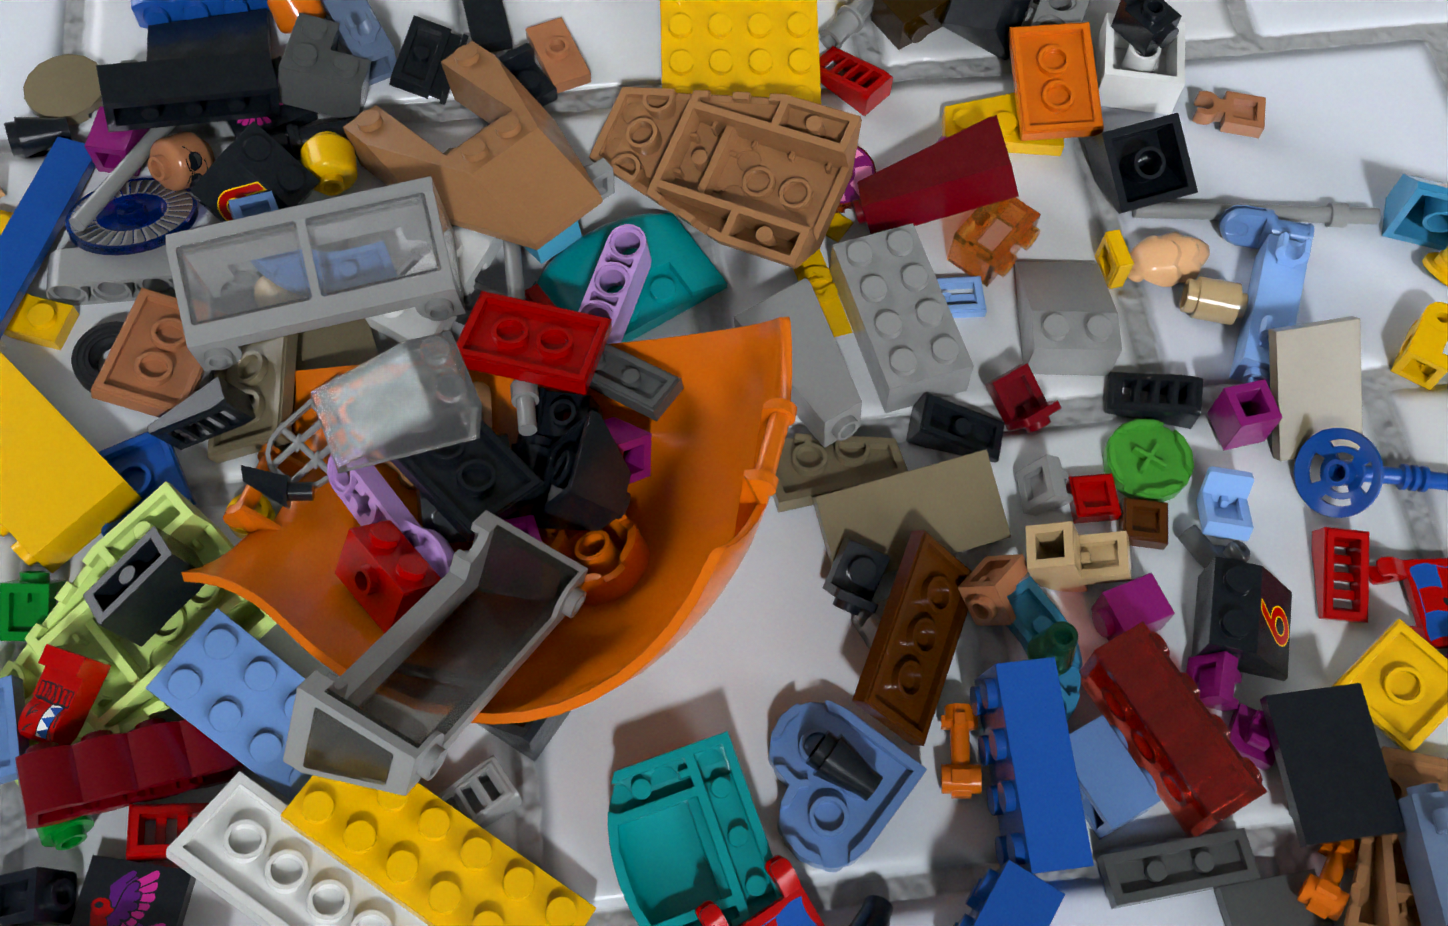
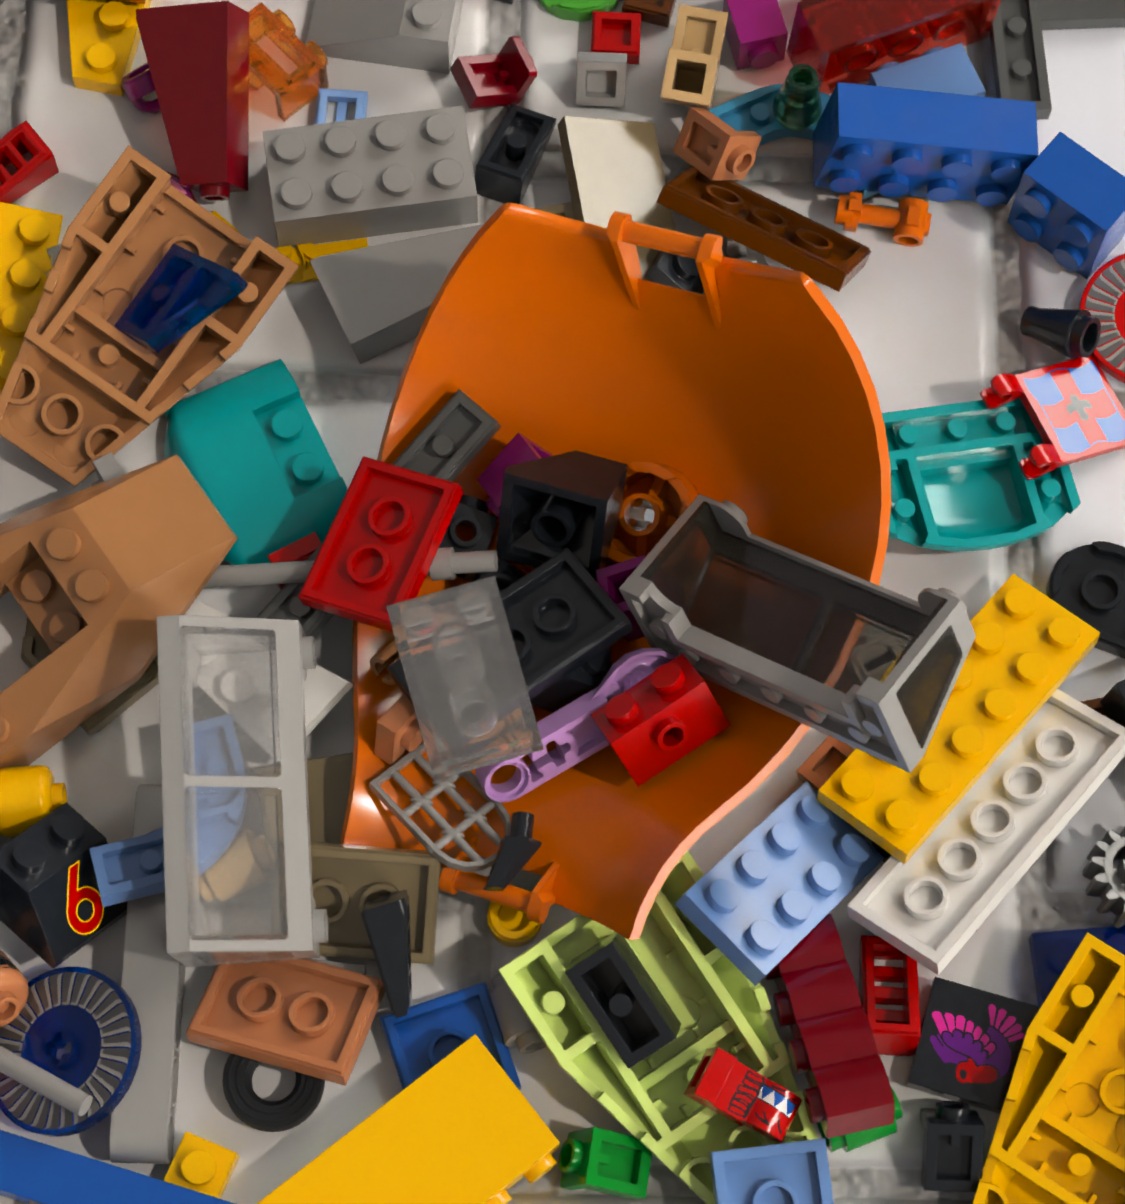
camera: 80 degrees left, 5 degrees up
(620, 270) = (279, 445): lavender beam -> none
(749, 187) = (177, 298): none -> clear blue wing
(823, 821) = (915, 332): medium blue plate -> none
(843, 766) = (896, 319): black cone -> none

